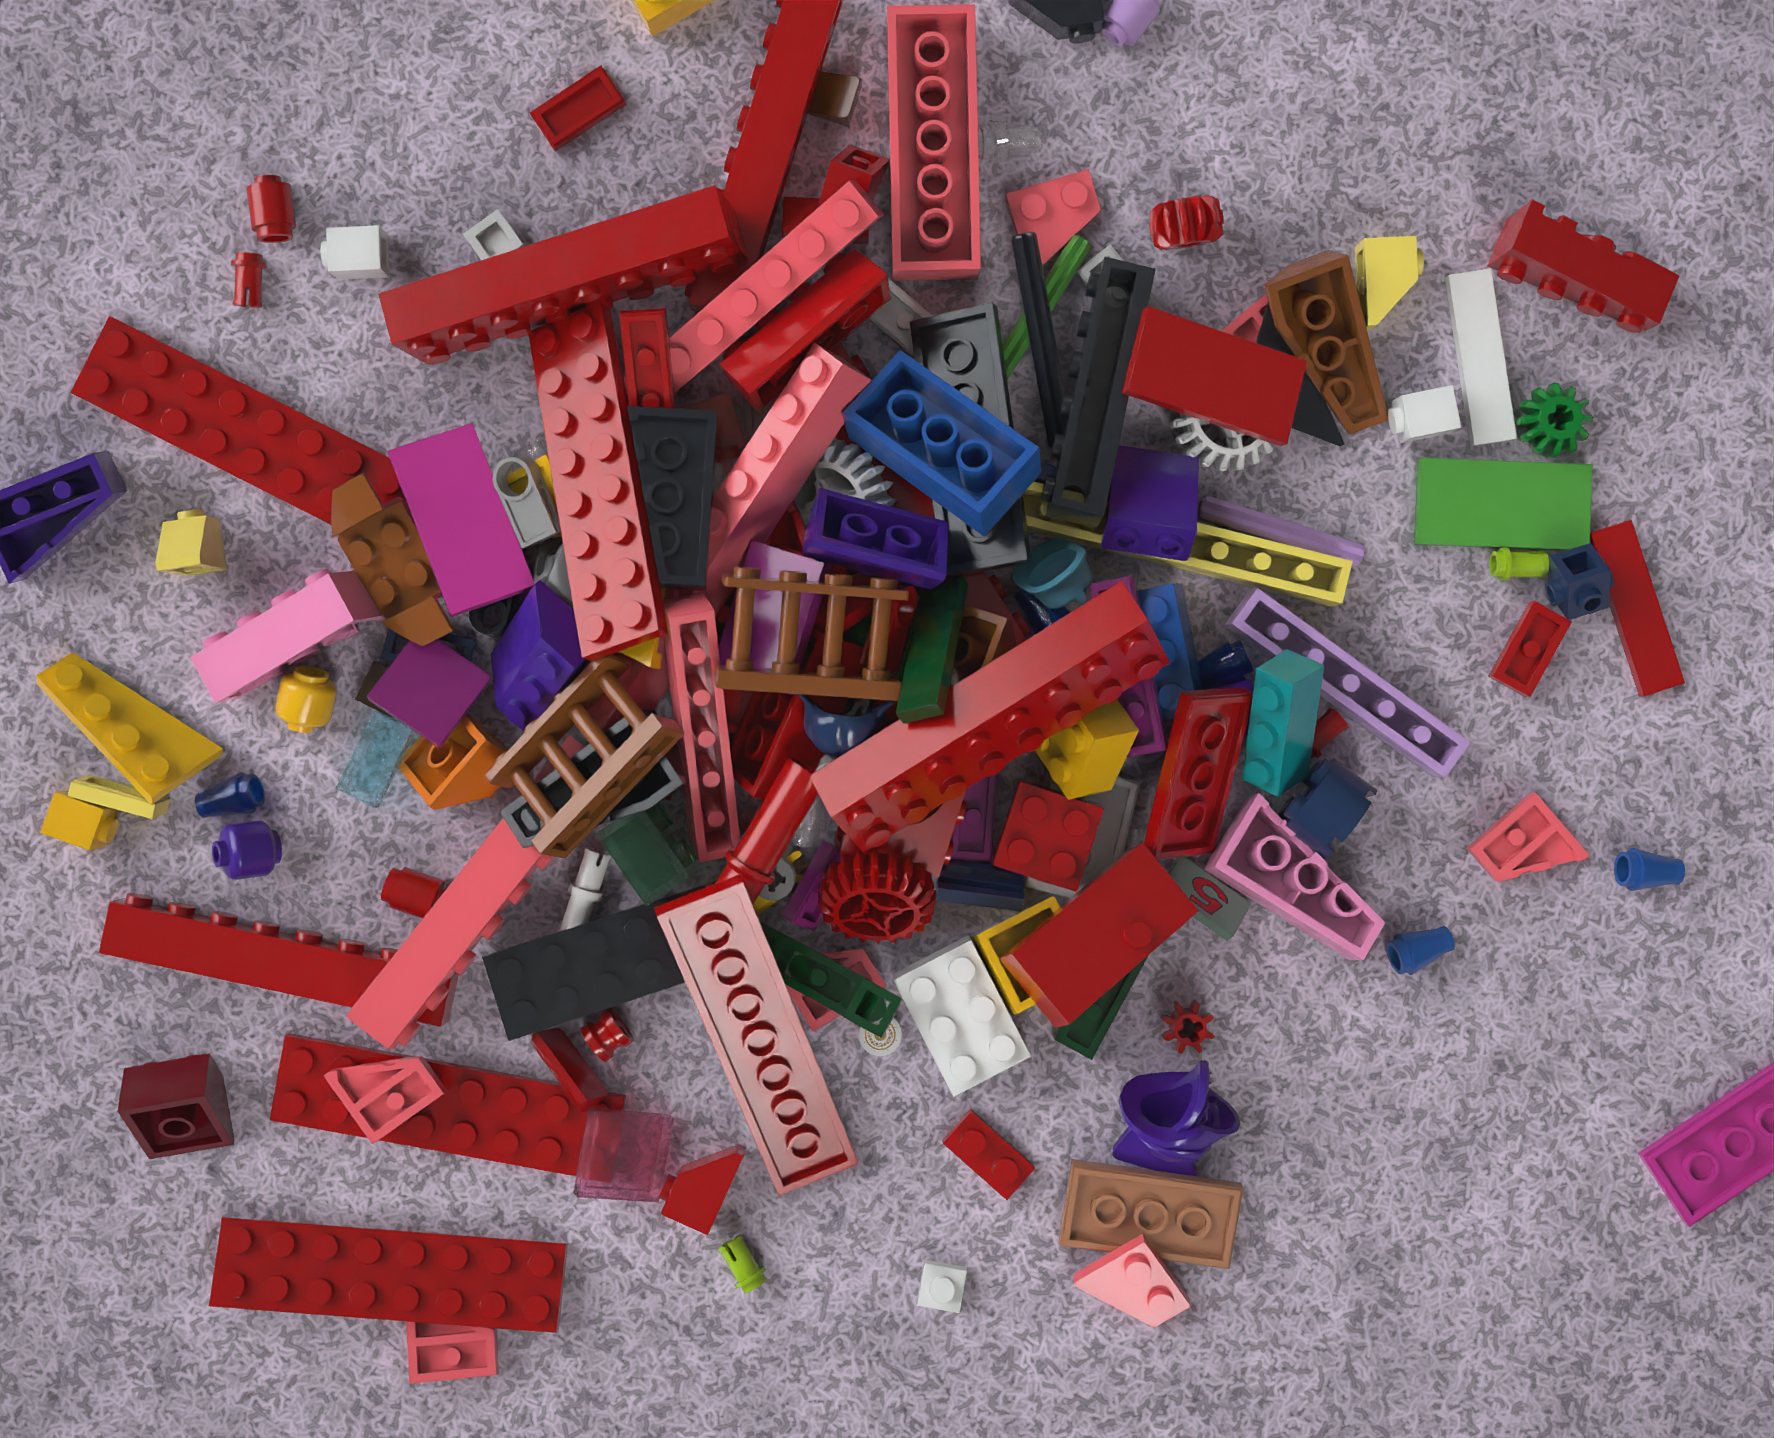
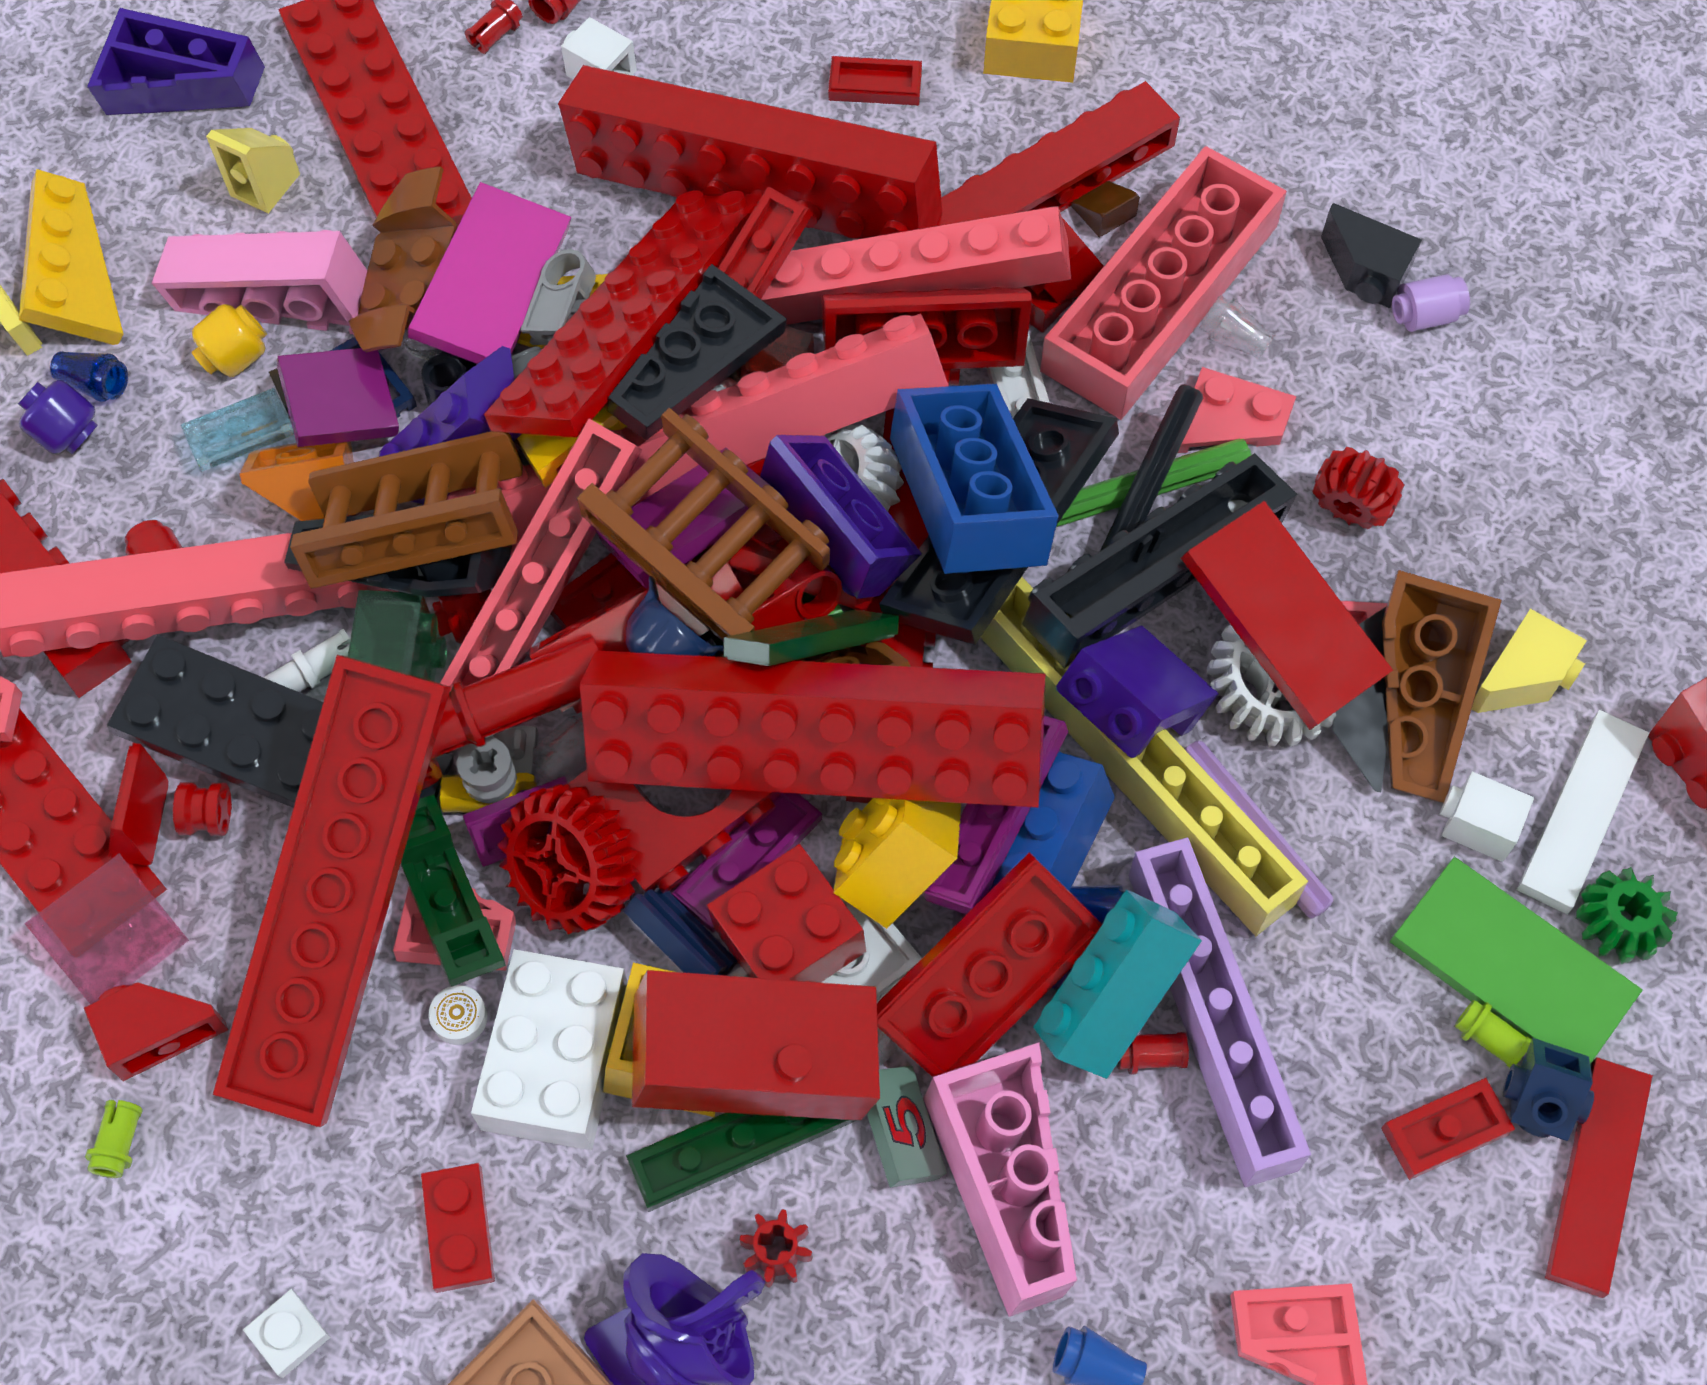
camera: 40 degrees right, 25 degrees down
(1328, 806) = (1104, 1115): dark blue brick -> none

